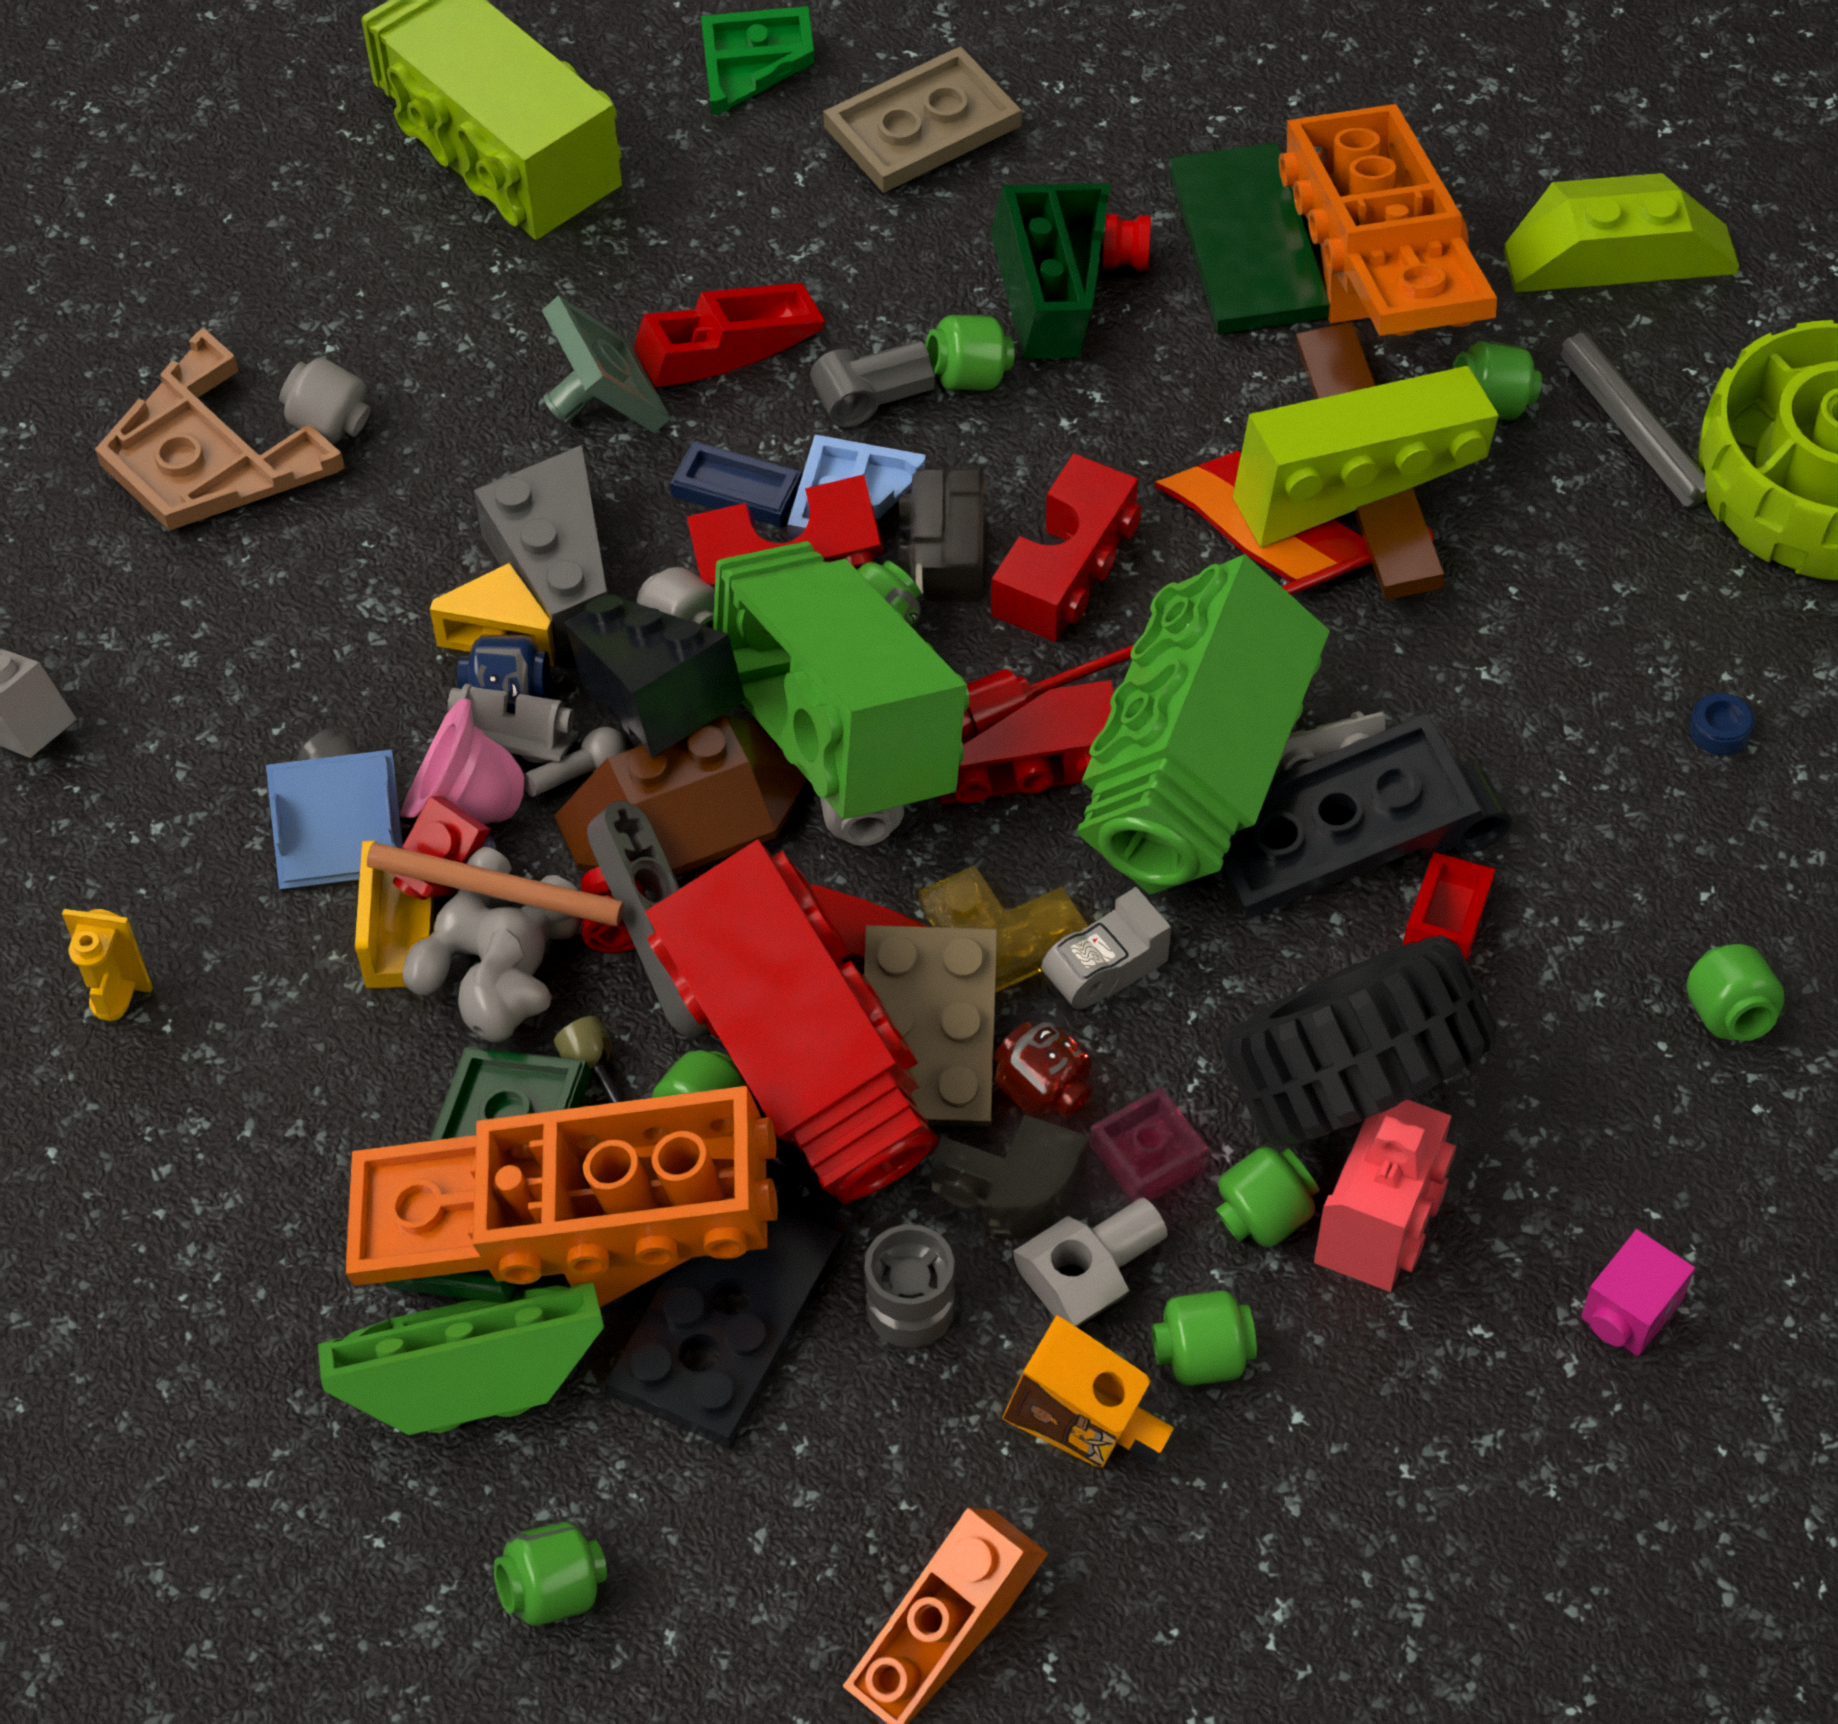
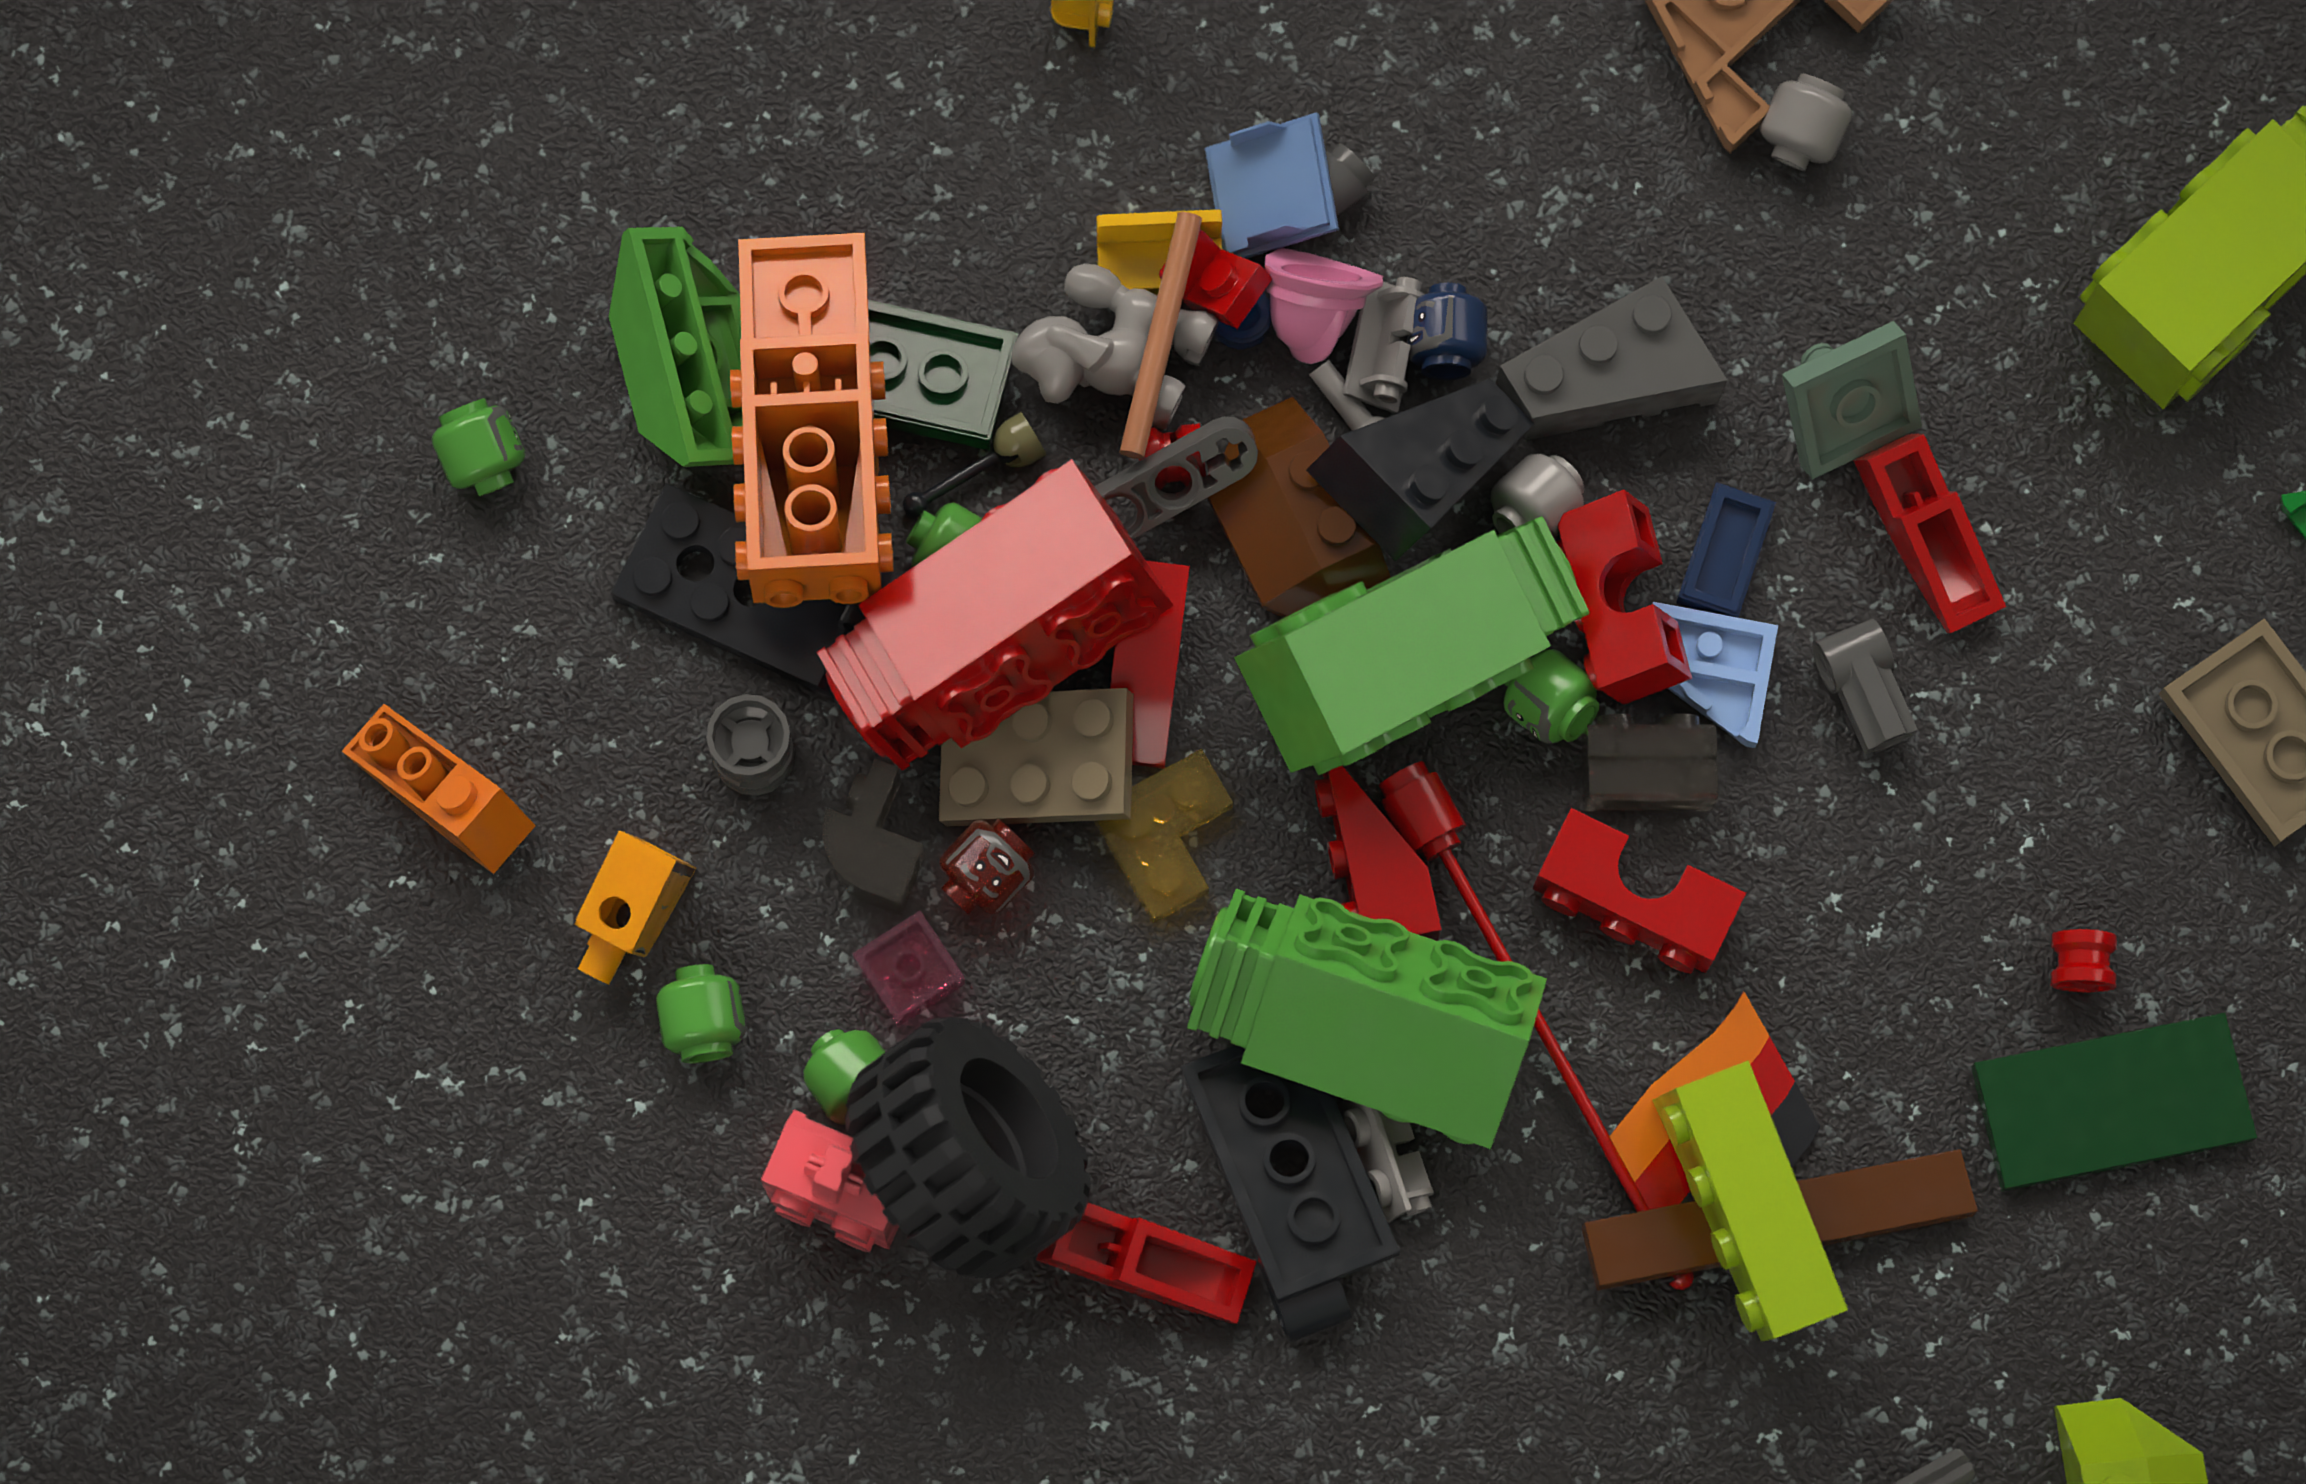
camera: 85 degrees right, 20 degrees up
(491, 606) = (1527, 312): yellow slope -> none
(969, 352) = (1906, 787): bright green head -> none
(1049, 261) = (2035, 874): dark green wedge -> none
(1096, 1251) = (792, 922): light grey piece -> none
(1109, 952) = (1128, 931): light grey leg -> none
(1383, 223) = (2069, 1233): orange wedge -> none
(1504, 374) = (1893, 1365): bright green head -> none
(1636, 1293) = (746, 1422): dark pink brick -> none

